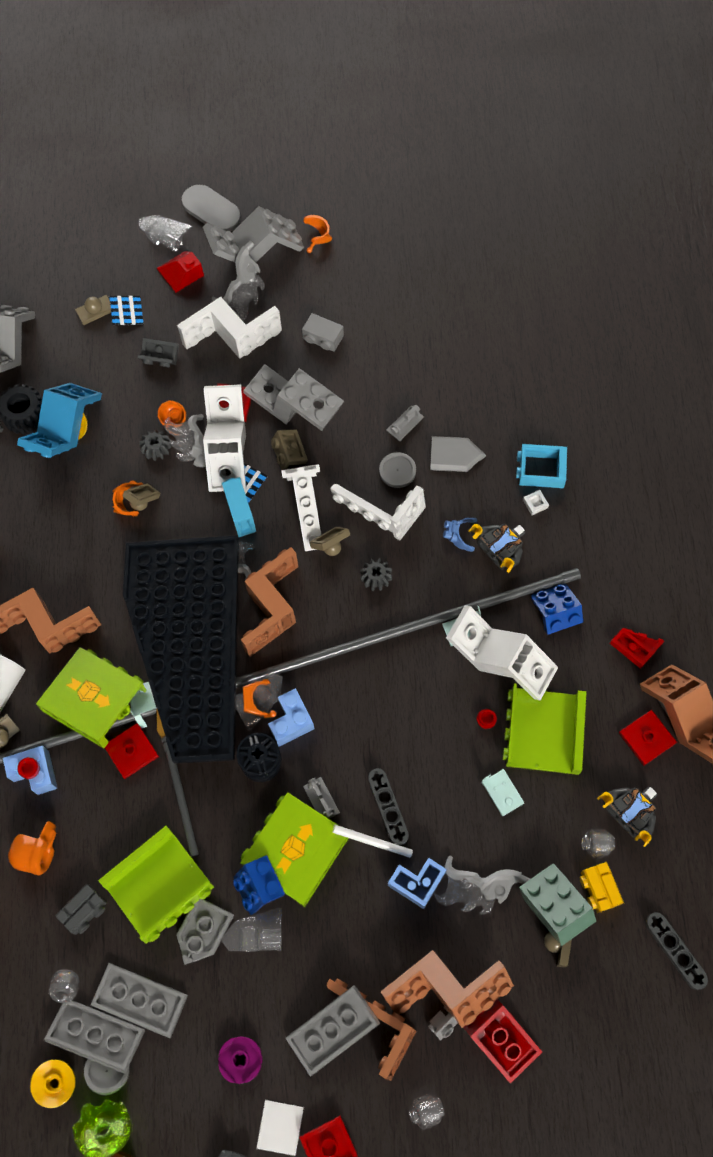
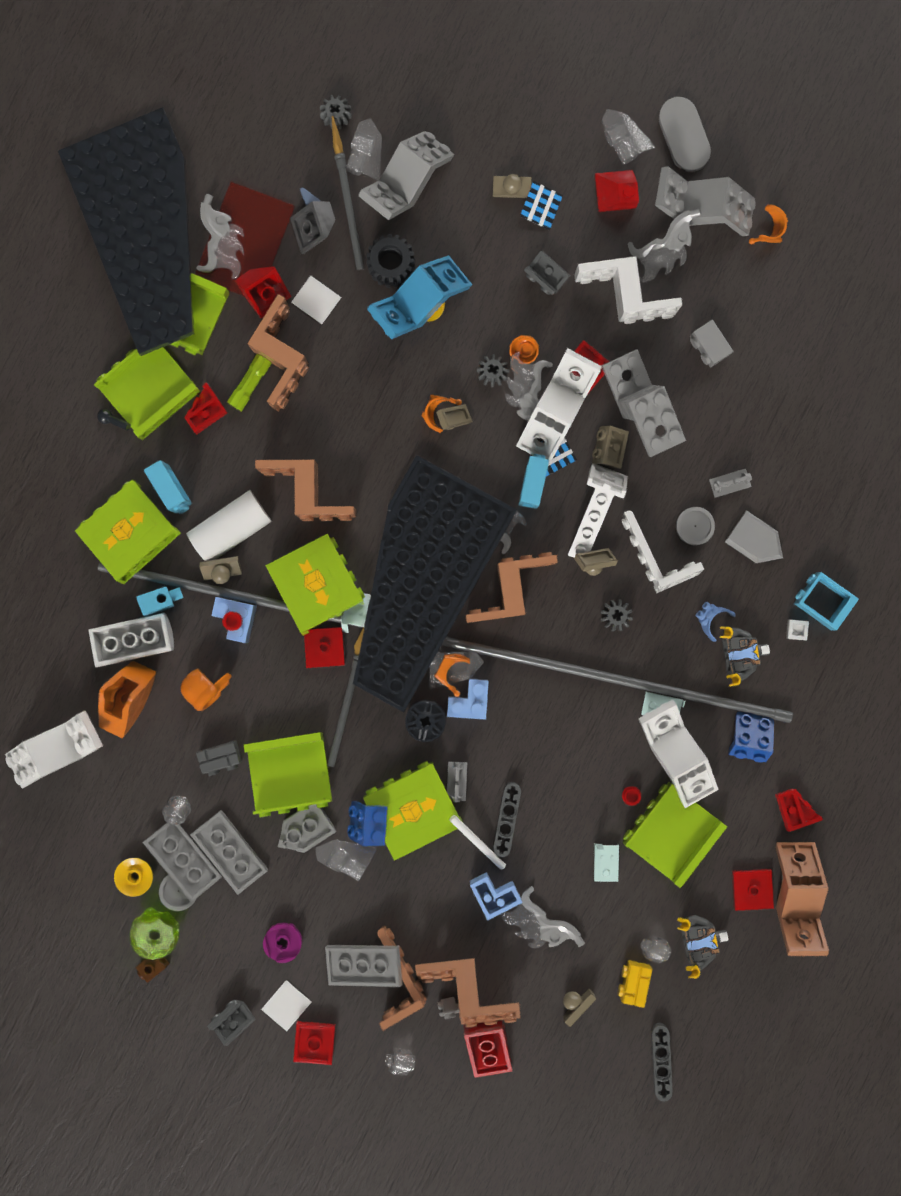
camera: 25 degrees right, 20 degrees up
(557, 904) = (592, 979): sand green brick -> none

